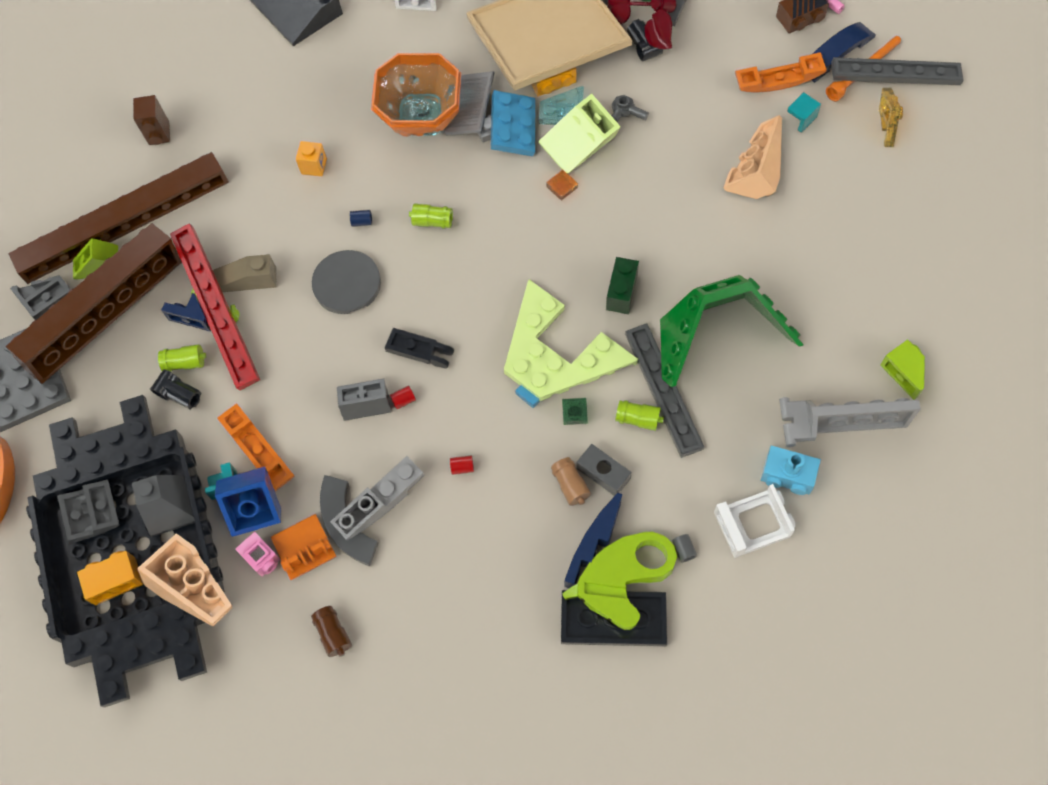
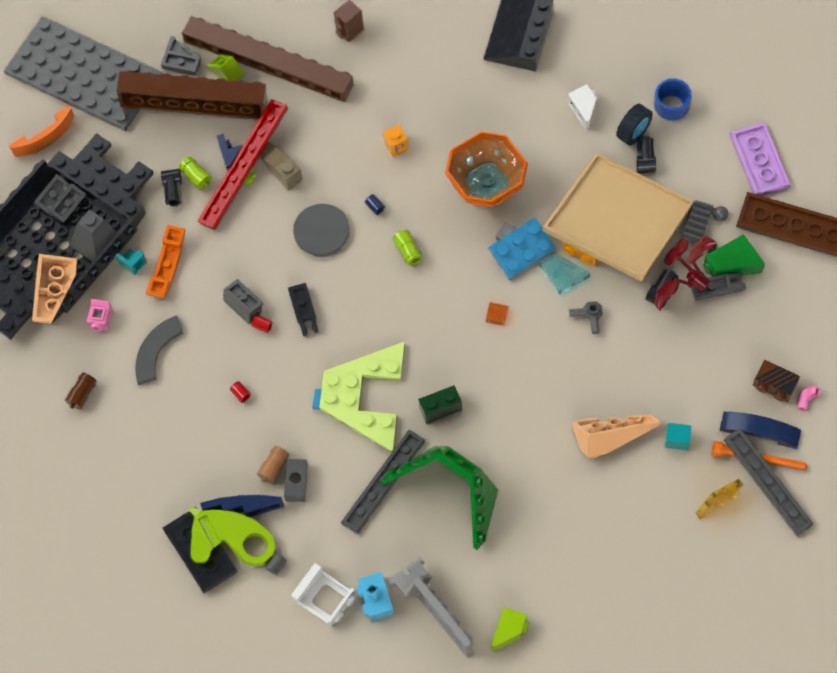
camera: 55 degrees right, 0 degrees up
(109, 577) = (27, 242): light orange brick -> none
(248, 501) = (125, 283): blue brick -> none
(303, 547) = (122, 337): orange hinge -> none
(378, 500) = (181, 359): light grey slope -> none
(473, 104) = (518, 207): light grey window -> none
(574, 411) = (325, 435): clear green plate -> none
(580, 134) = (540, 297): yellowish green slope -> none
(639, 415) = (350, 478): lime piece -> none
(781, 77) = (700, 401): orange slope -> none

